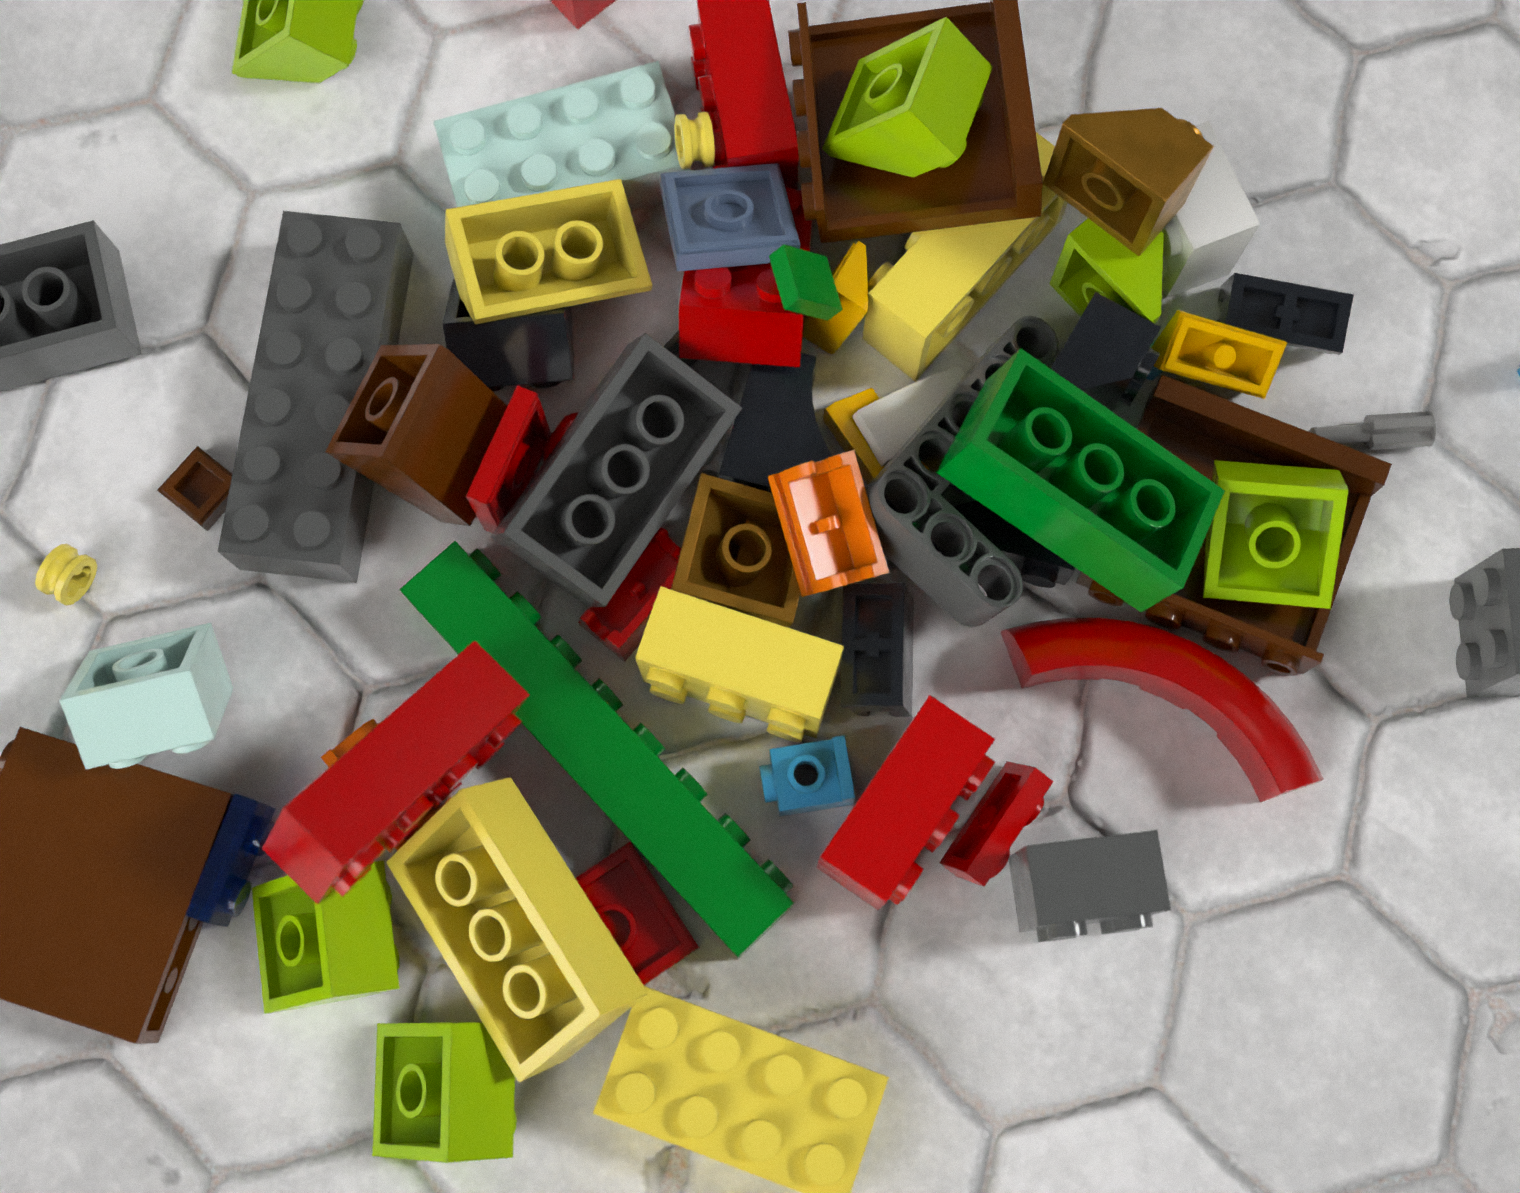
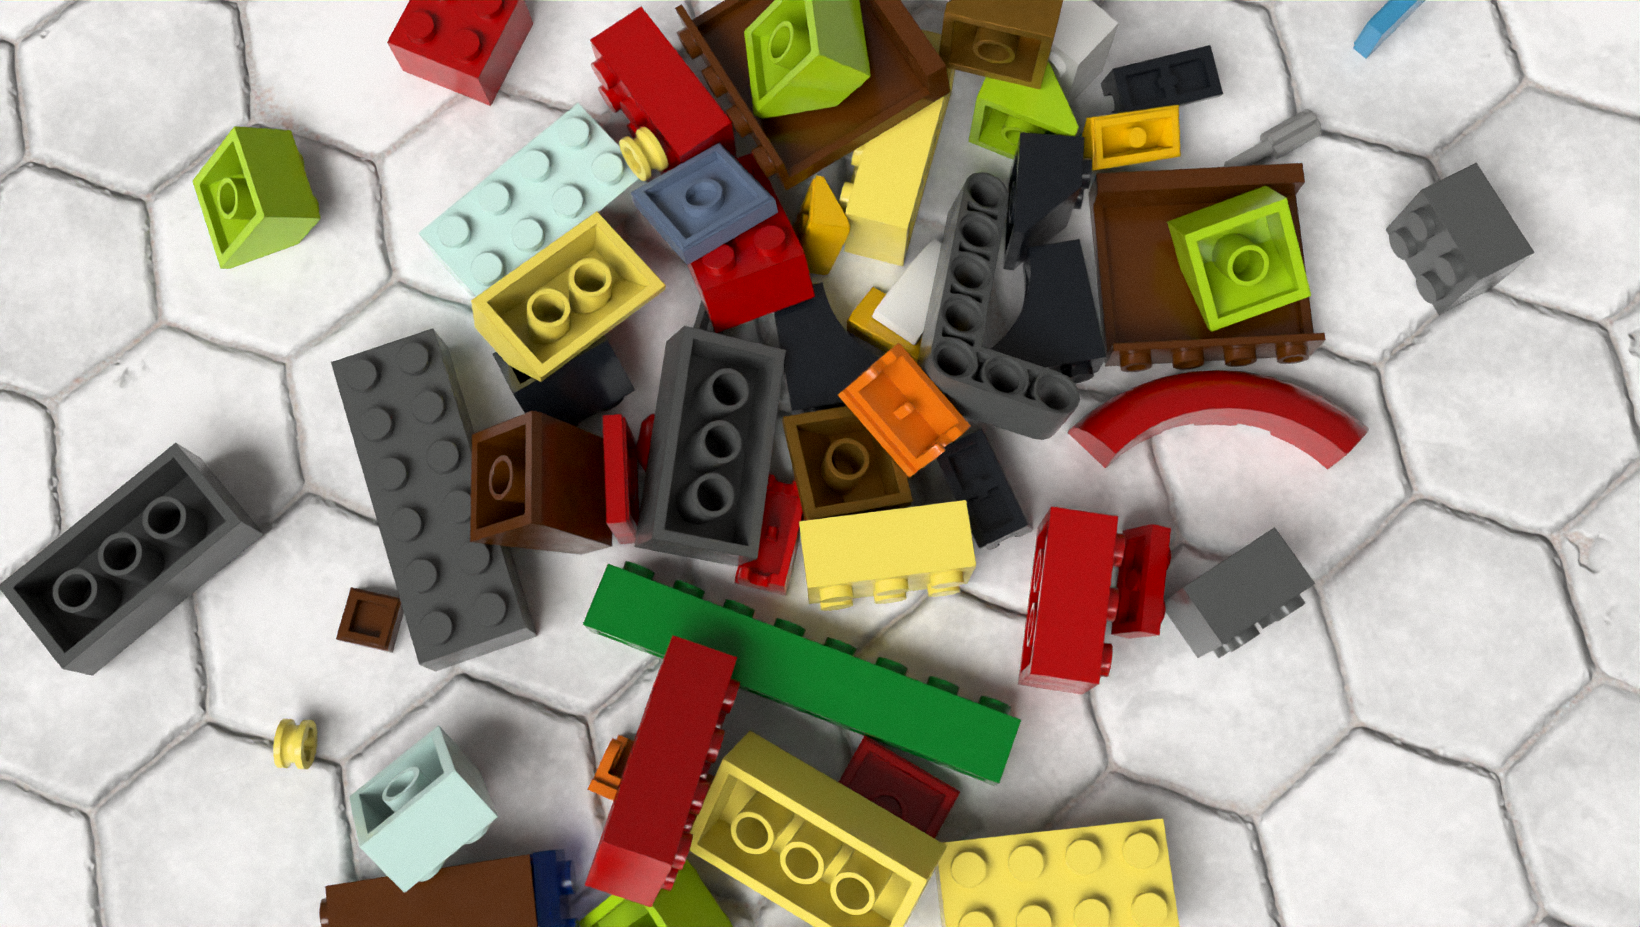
camera: 25 degrees left, 0 degrees up
(805, 282) = (794, 227): green tile -> none
(834, 781) = (1000, 605): dark azure brick -> none
(1082, 482) = (1084, 285): green brick -> none

